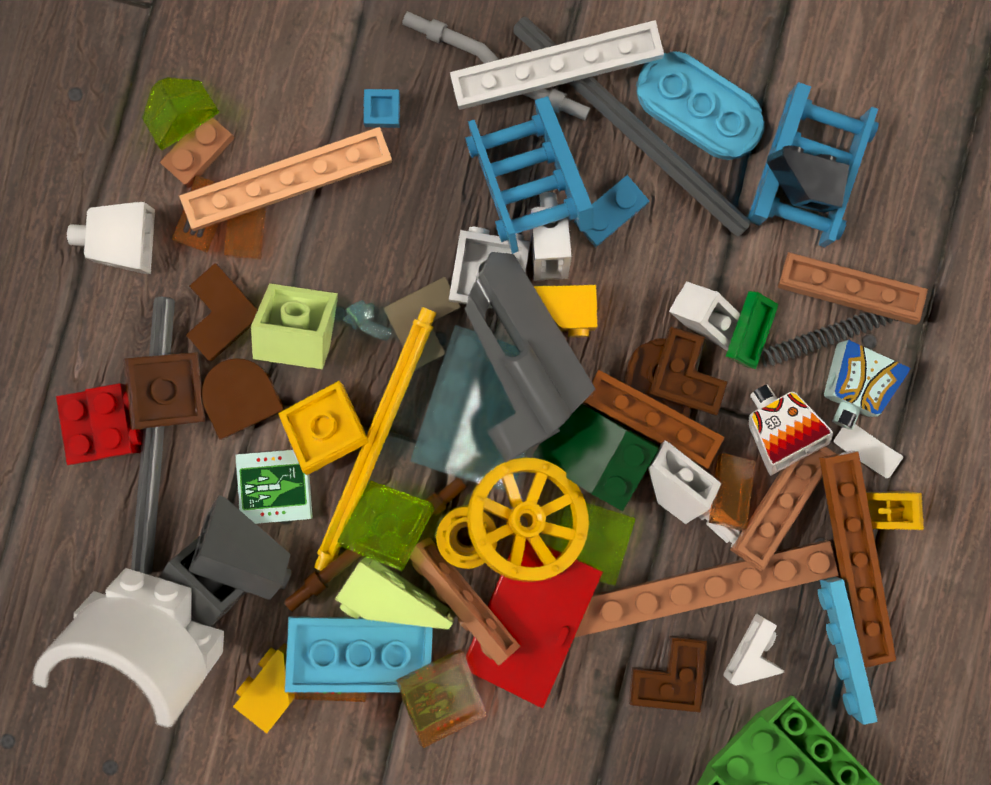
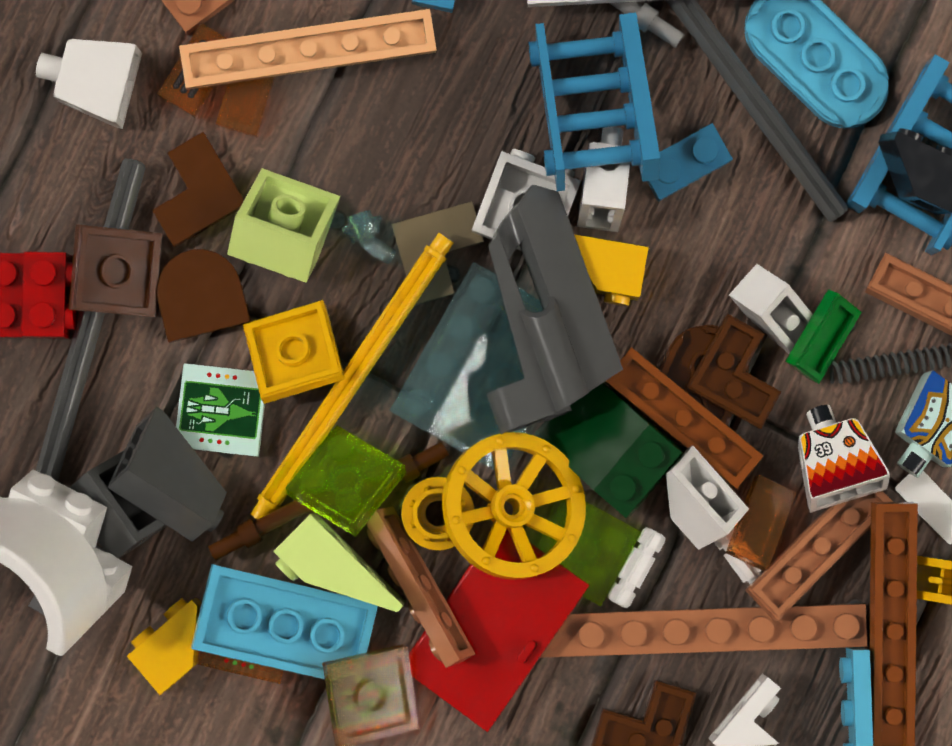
camera: 10 degrees right, 0 degrees up
(637, 548) = (636, 567): none -> white axle

